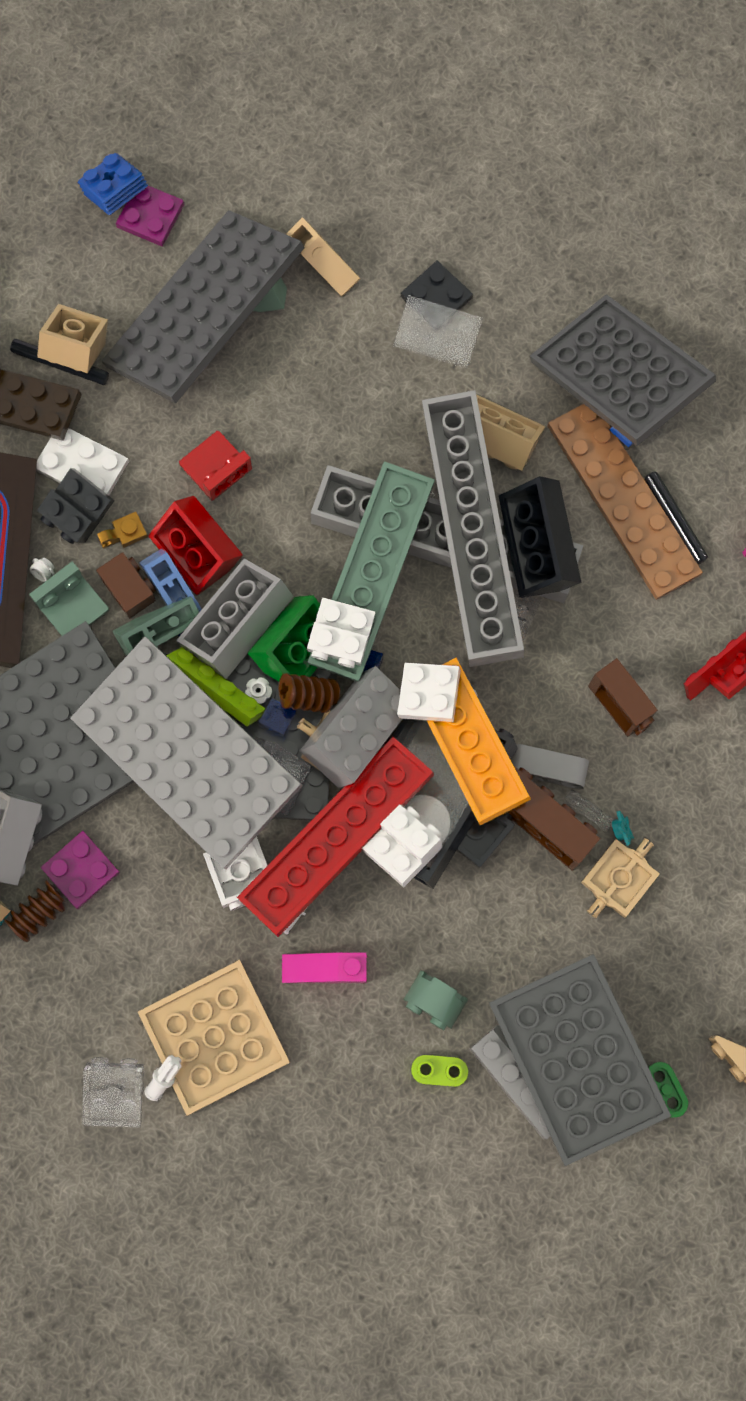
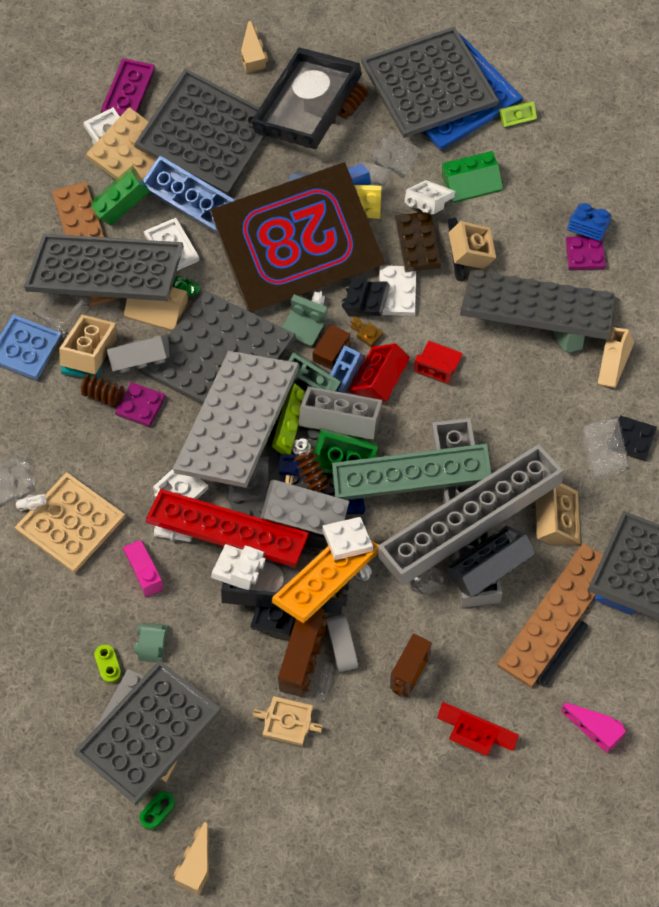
camera: 70 degrees right, 15 degrees down
(340, 633) = (359, 470): white plate -> none
(622, 829) = (322, 708): teal plate -> none

